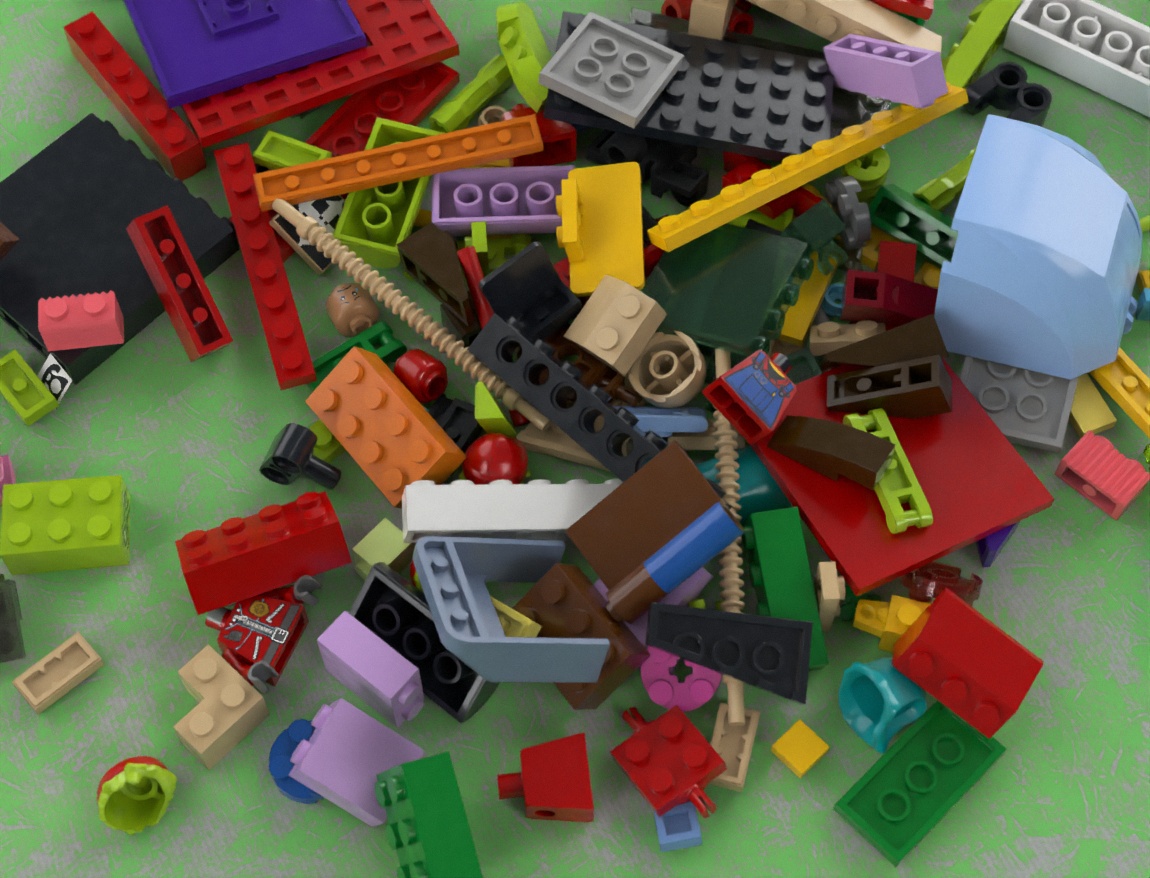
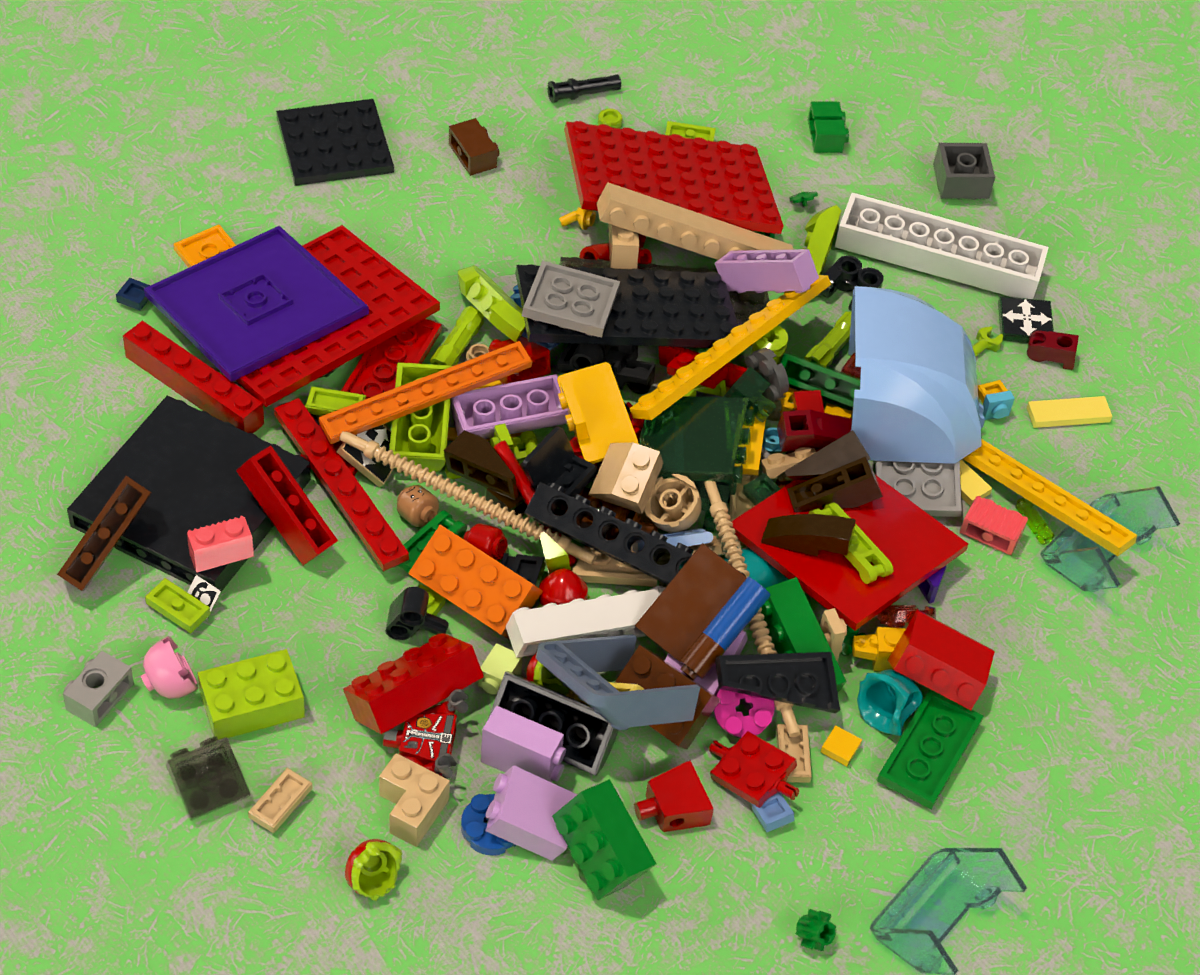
camera: 20 degrees left, 10 degrees down
(753, 394) = (743, 507): torso -> none

